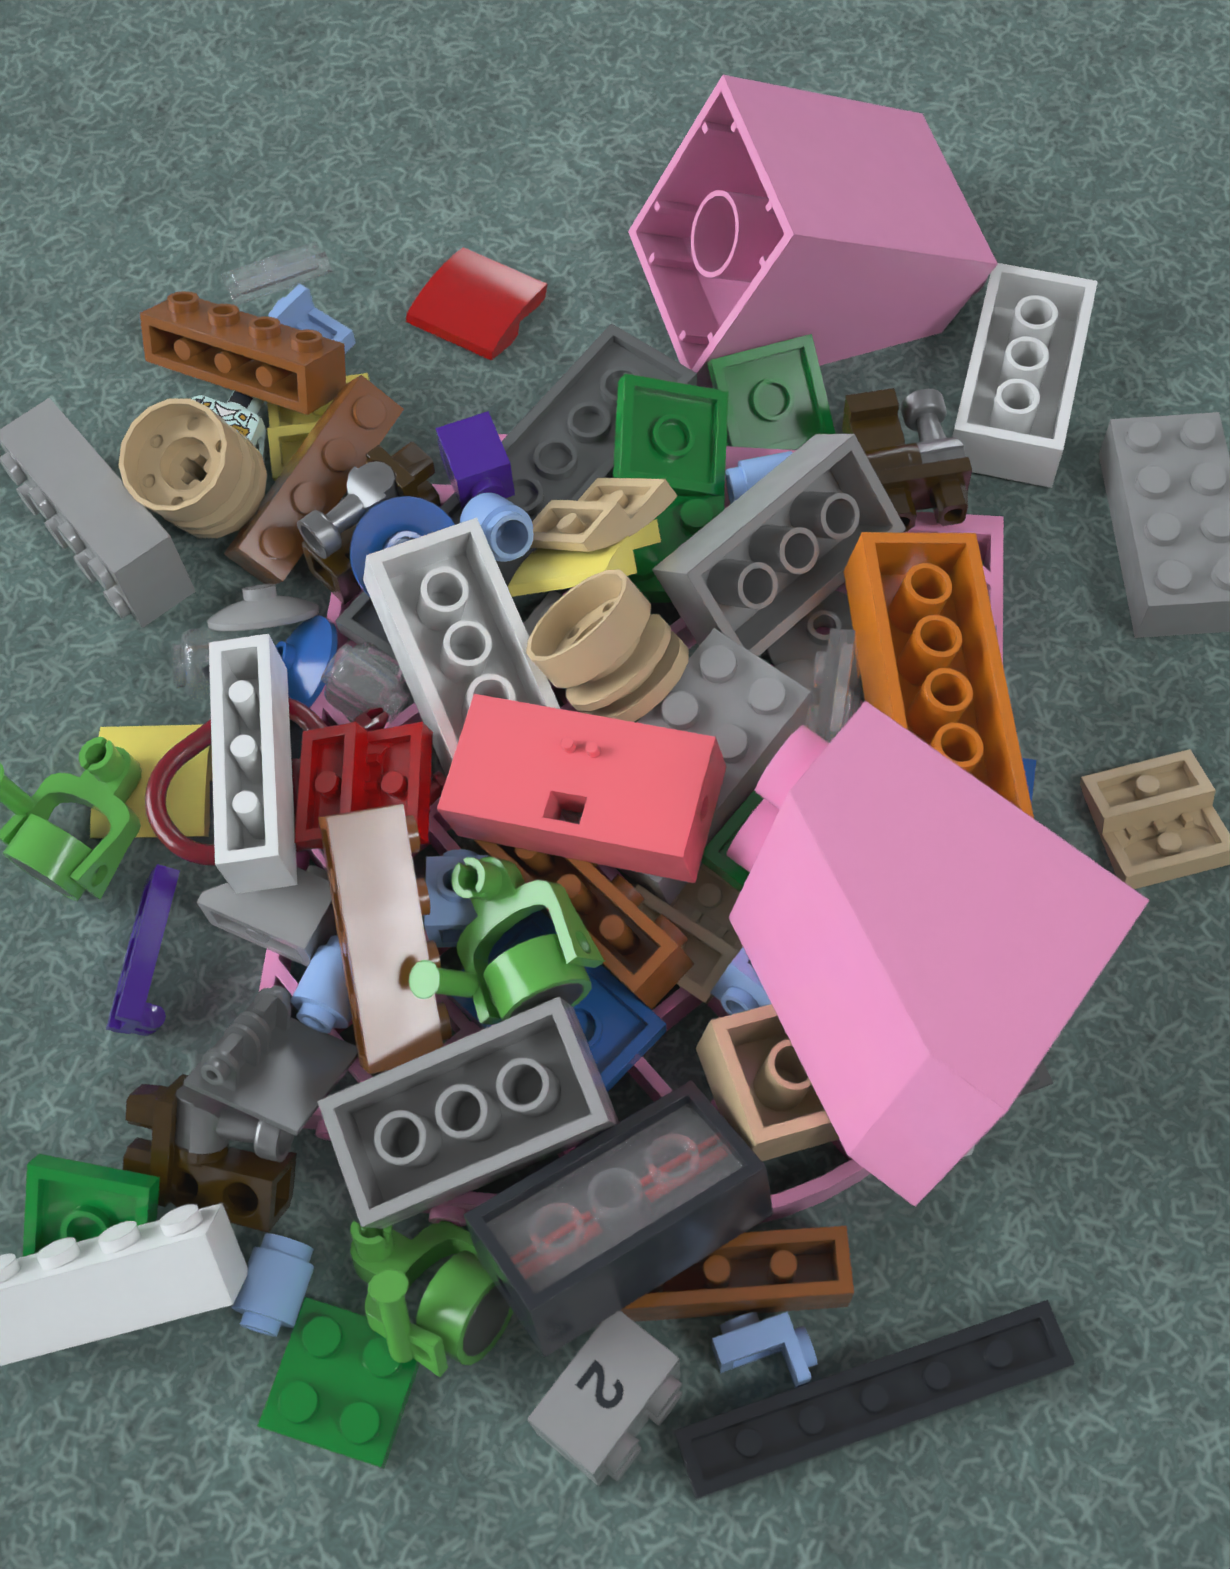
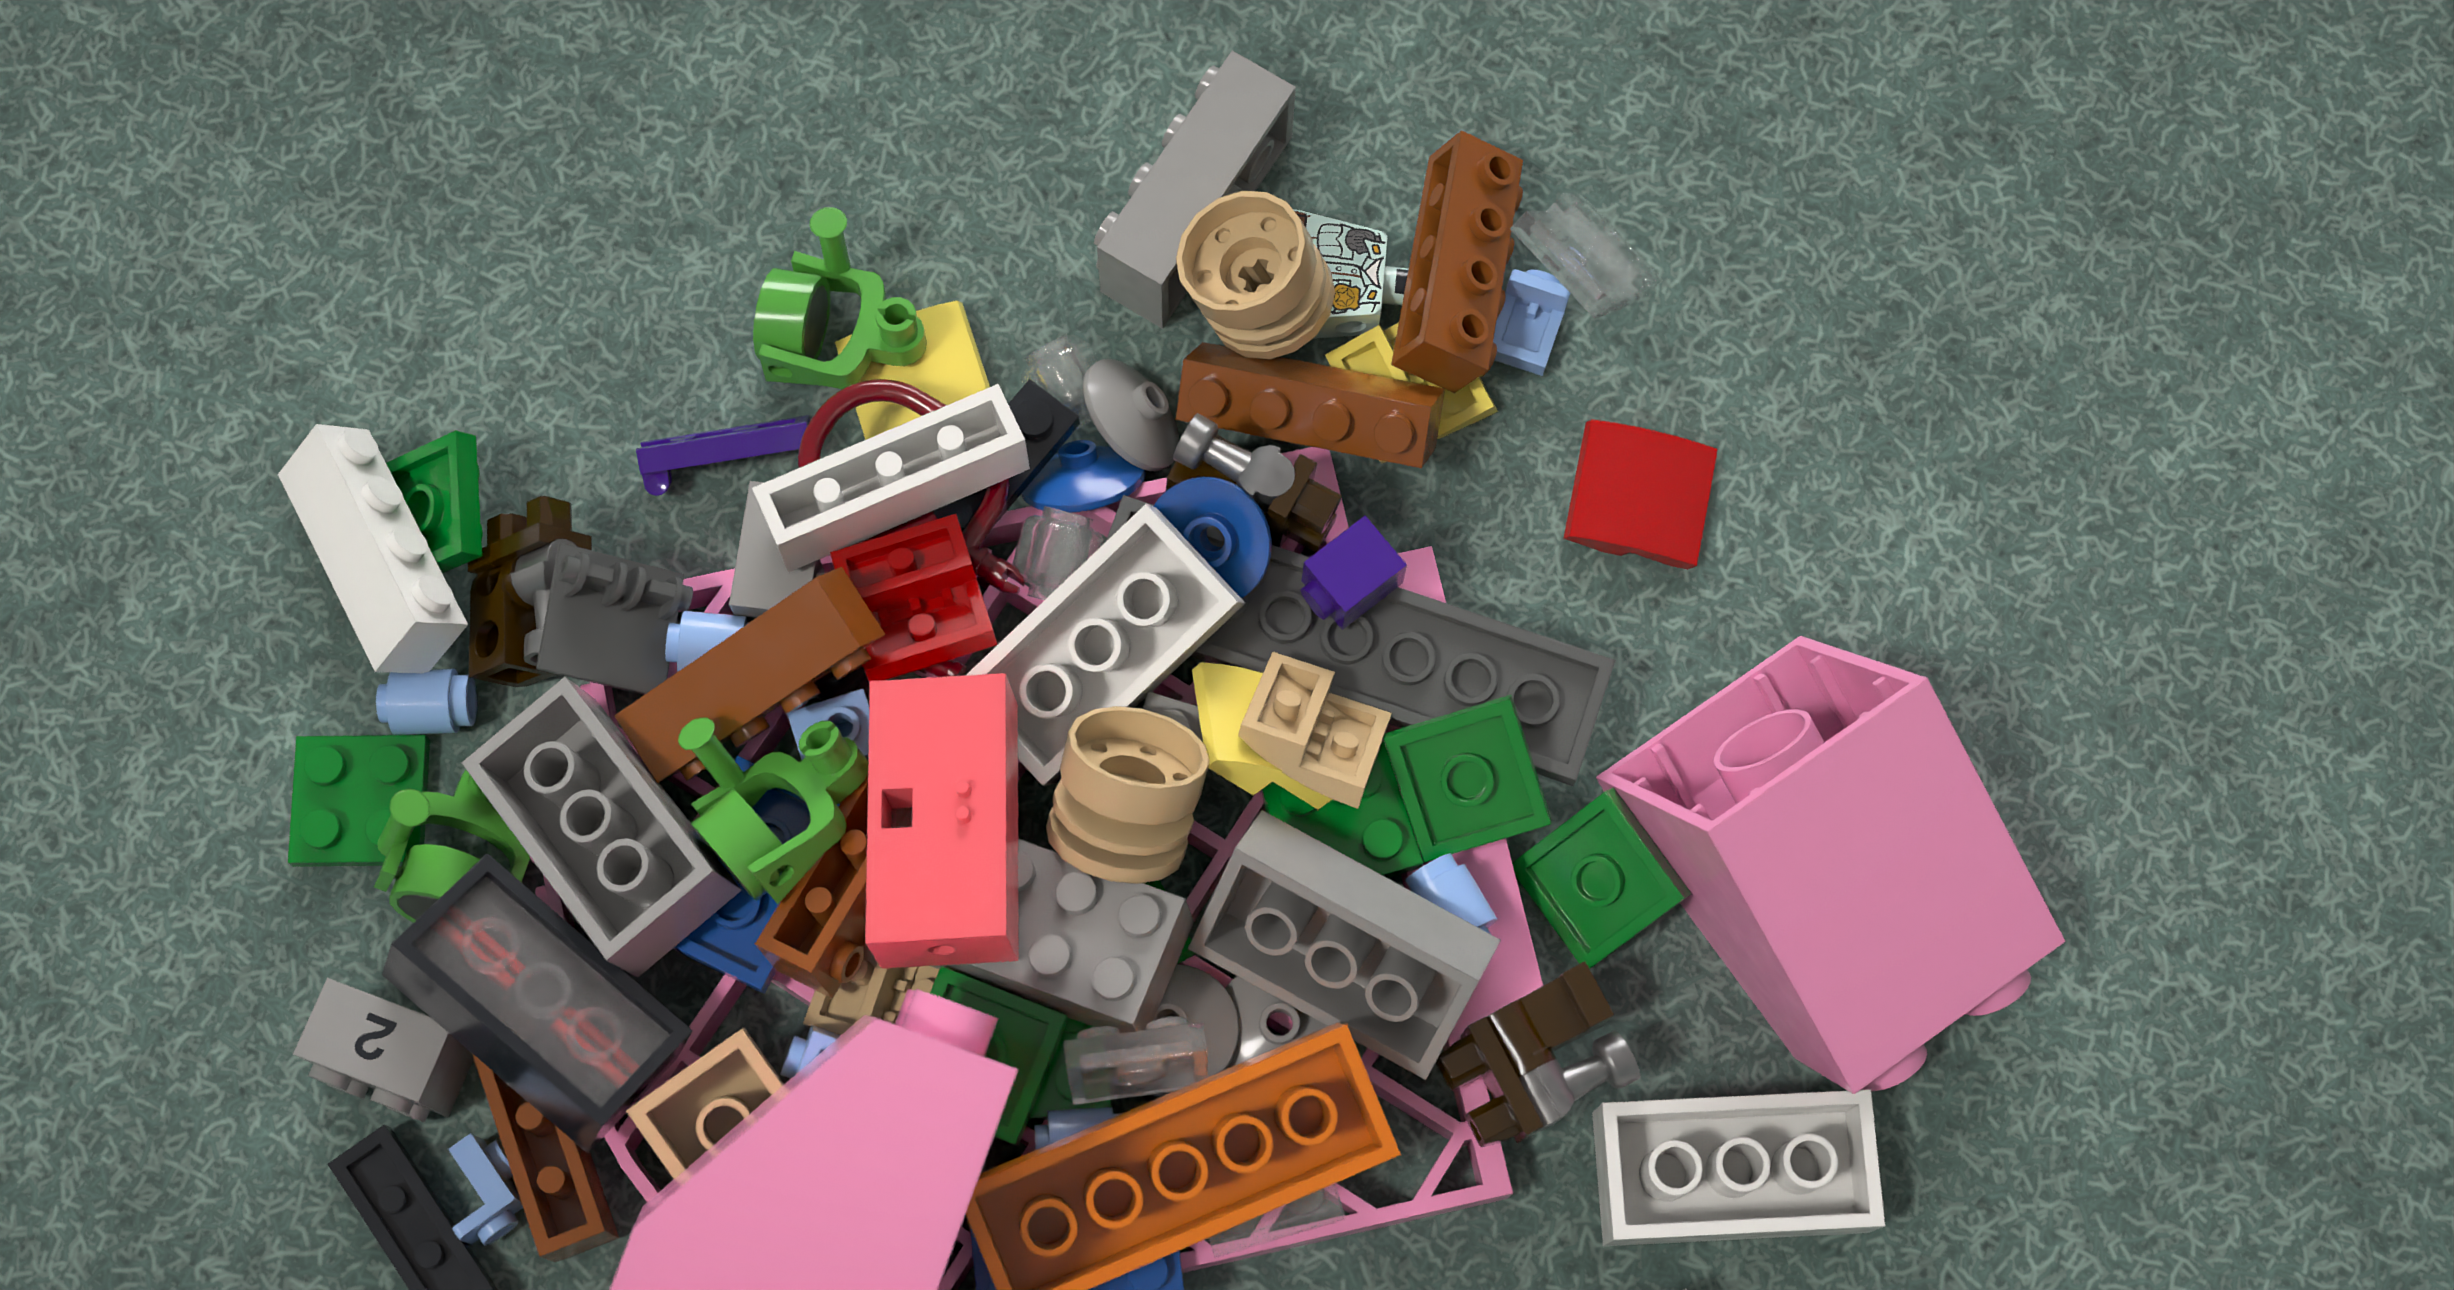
camera: 65 degrees right, 10 degrees up
(503, 523) = (1267, 626): light blue brick -> none

